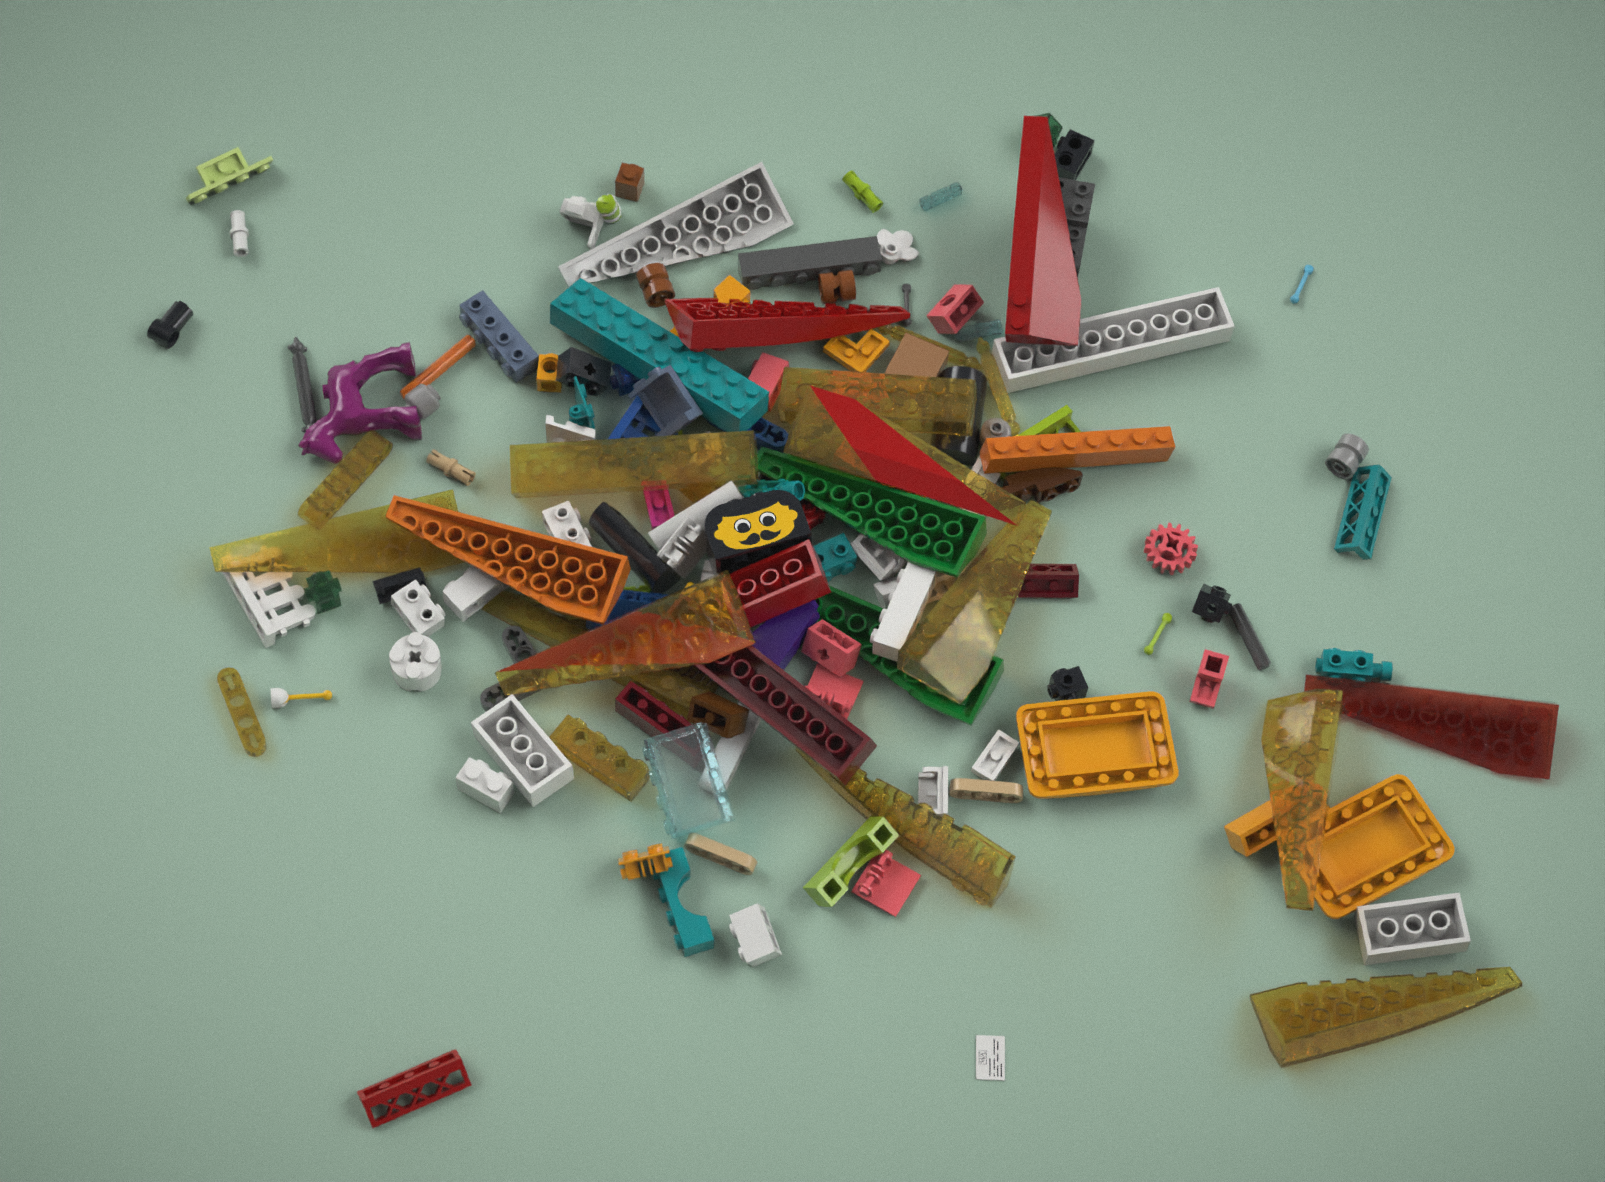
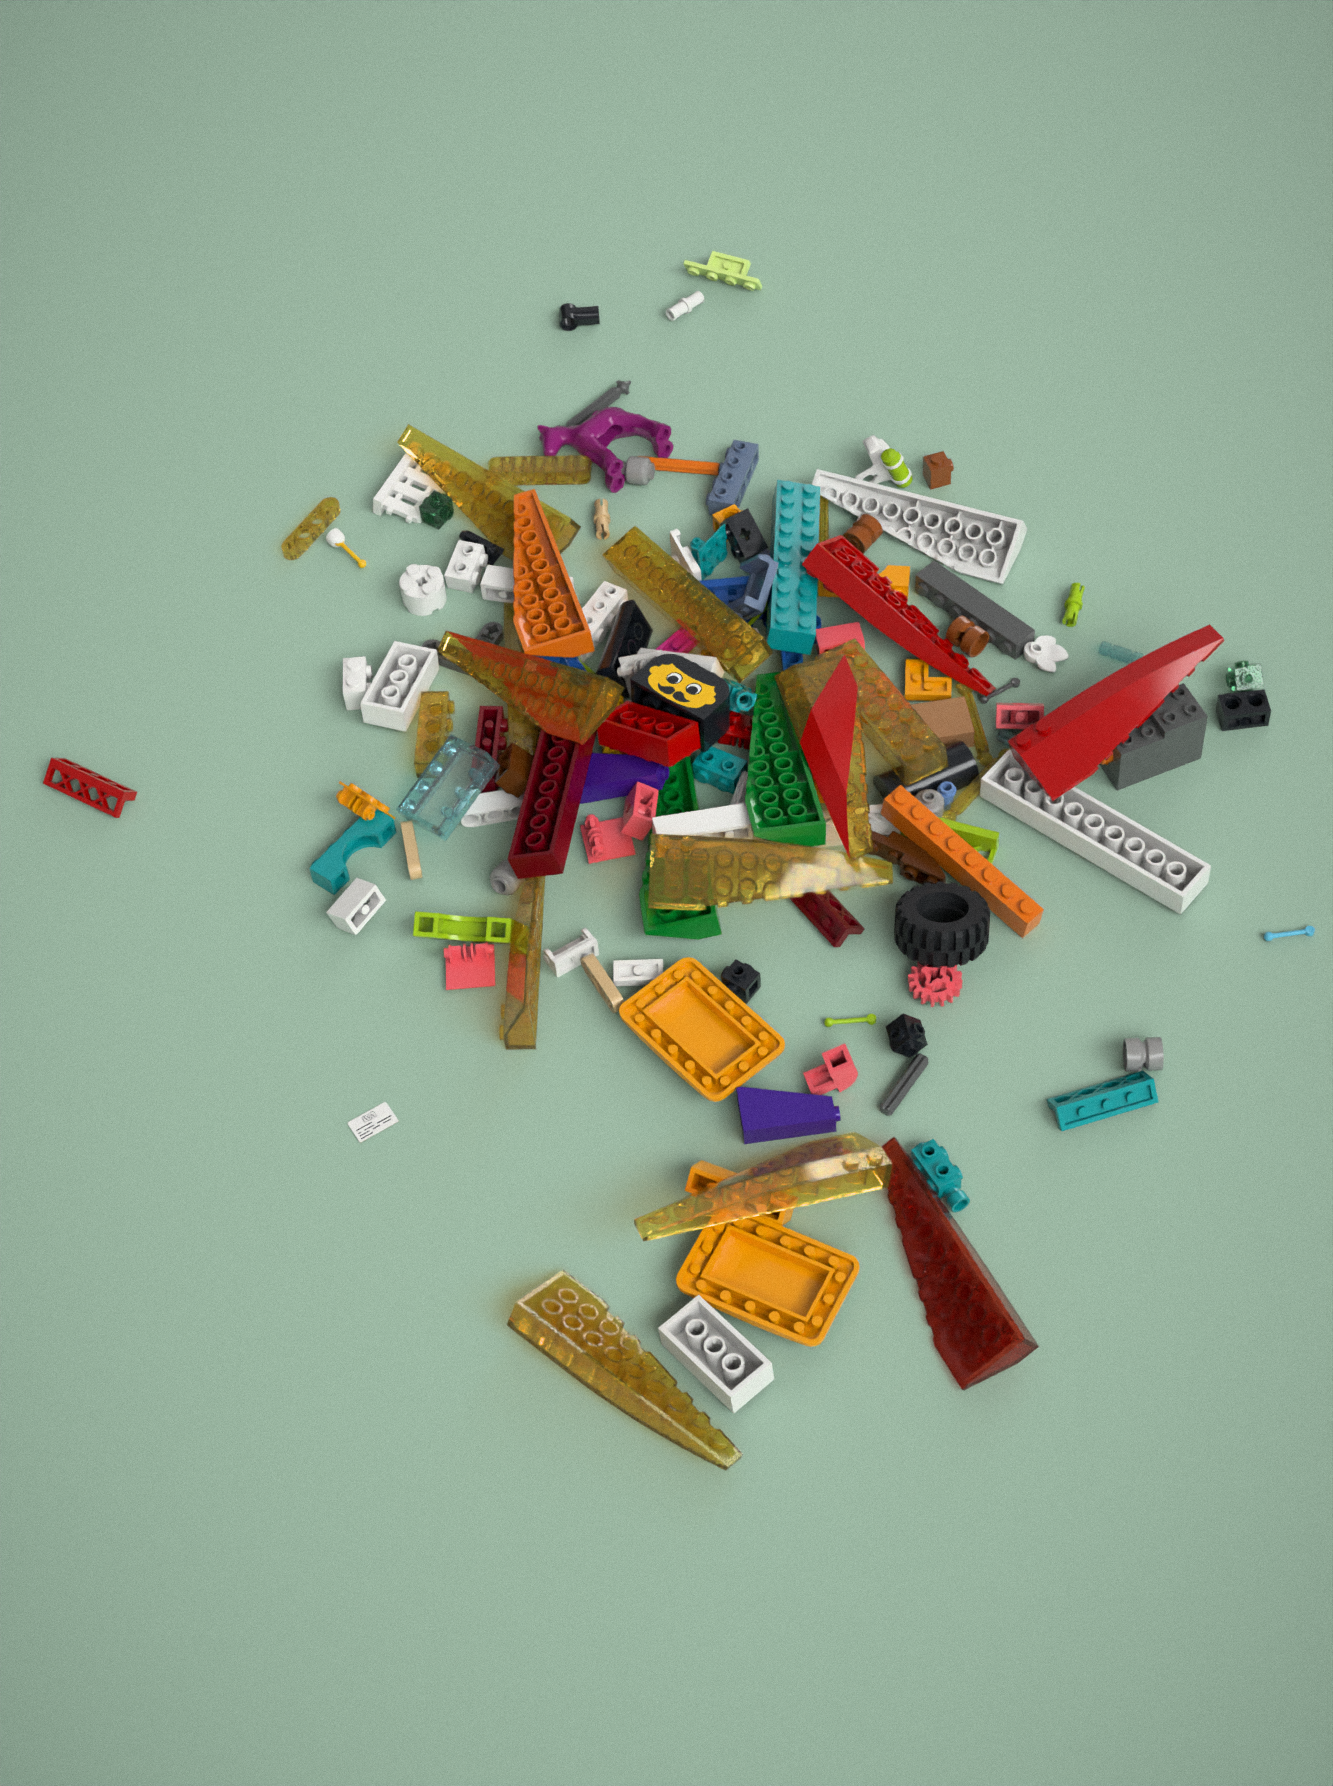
camera: 65 degrees right, 10 degrees down
(815, 795) = (504, 879): none -> light grey head
(993, 410) = (948, 792): none -> medium blue pin
(1138, 528) = (942, 924): none -> black tyre
(1217, 742) = (784, 1115): none -> dark purple slope

